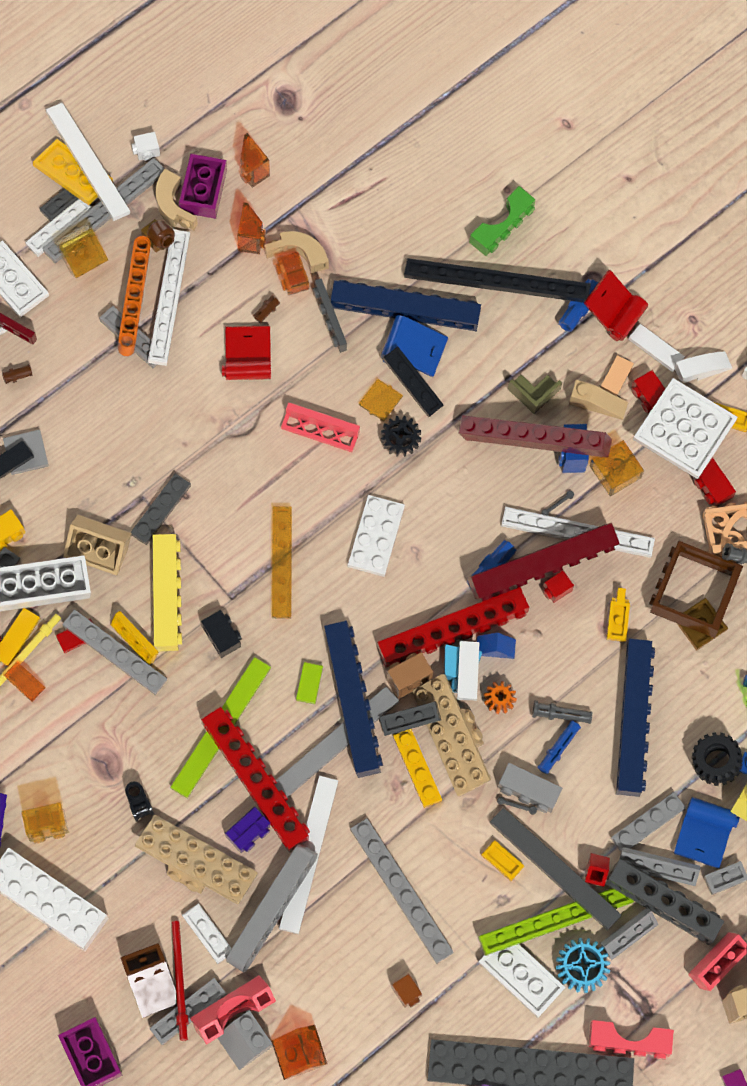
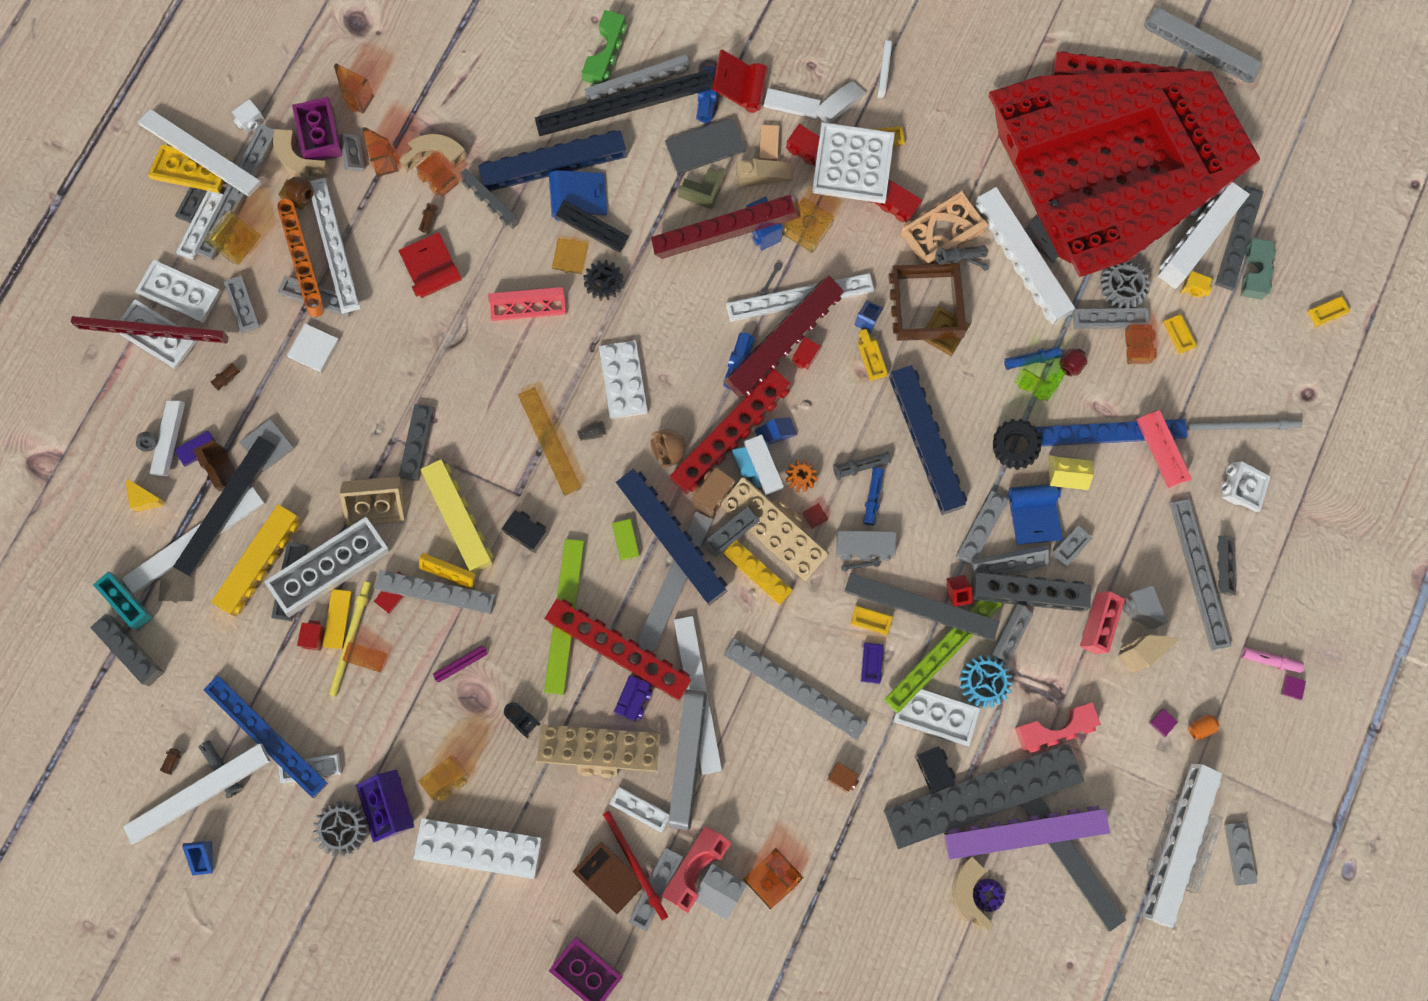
camera: 25 degrees left, 5 degrees up
(62, 315) = (242, 304): none -> light grey plate
(107, 382) = (313, 348): none -> white tile
(107, 727) = (460, 663): none -> magenta axle
(225, 219) = (352, 152): none -> light grey plate
(326, 570) = (592, 431): none -> clear smoke cone
(388, 615) = (668, 447): none -> medium nougat cylinder
(484, 900) = (872, 663): none -> dark purple tile
(495, 740) = (815, 516): none -> clear red tile
(496, 1023) = (935, 769): none -> black brick
(515, 262) = (638, 78): none -> light grey plate
(555, 352) = (705, 146): none -> dark grey tile
(634, 577) = (868, 316): none -> blue slope

